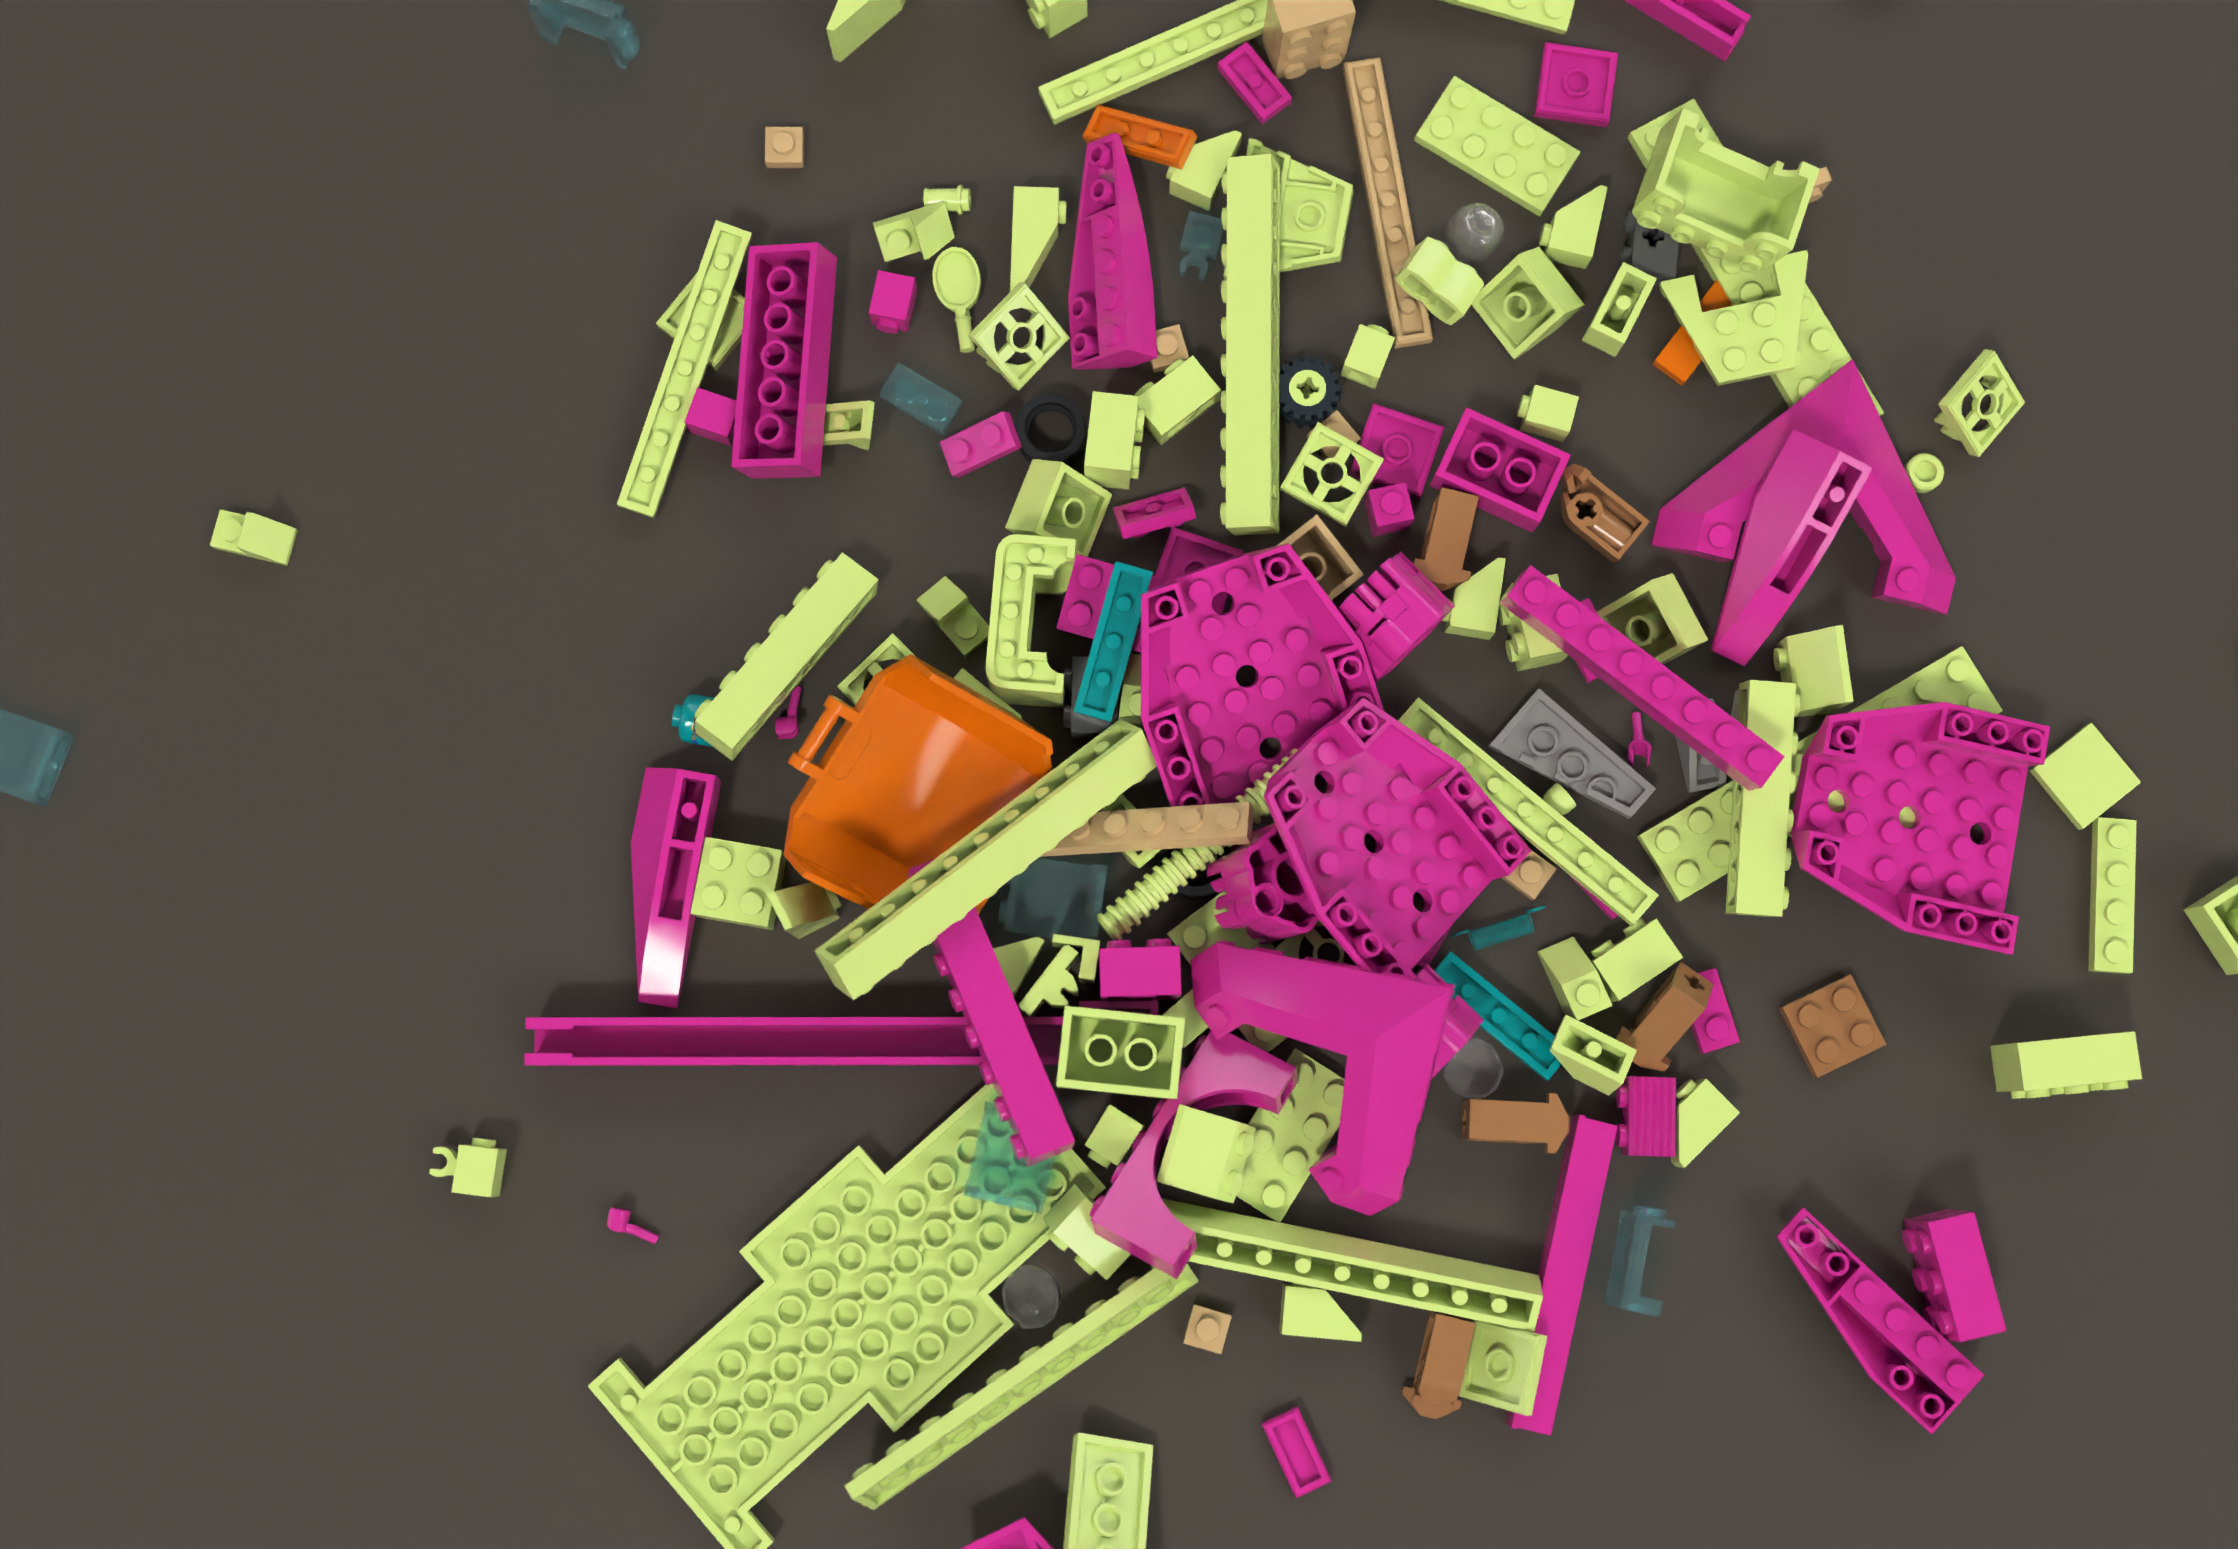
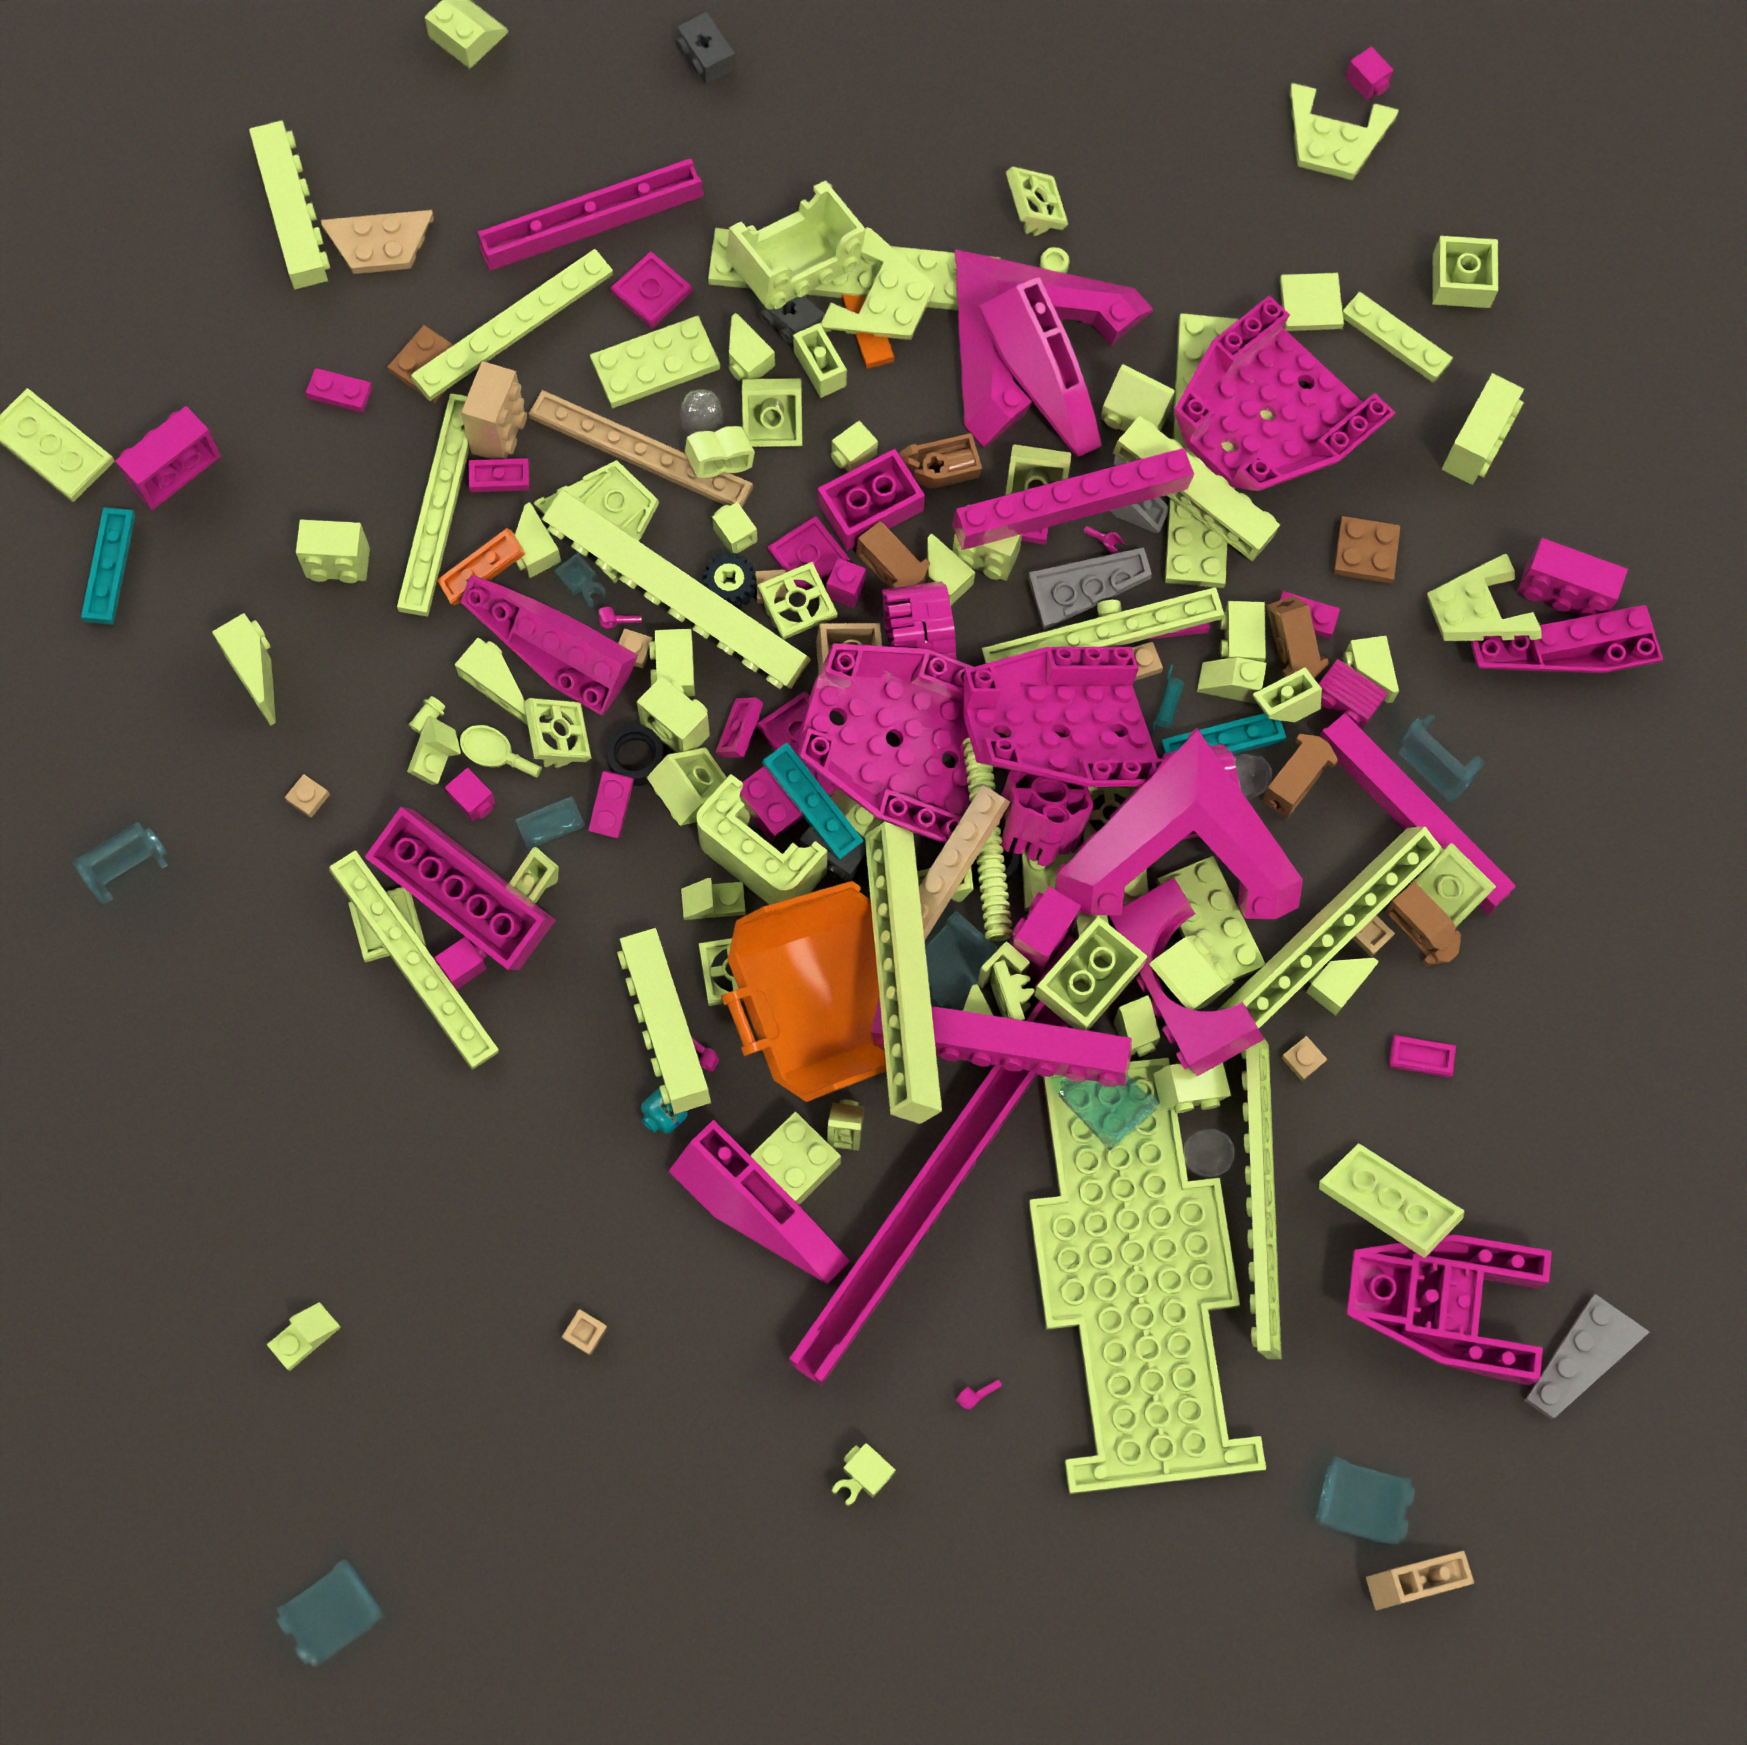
camera: 55 degrees left, 10 degrees down
(431, 799) = (584, 1332): none -> tan plate
(1179, 304) = (609, 620): none -> dark pink hand
(1391, 1318) = (1373, 936): none -> tan plate
(1838, 1179) = (1468, 612): none -> yellowish green wing

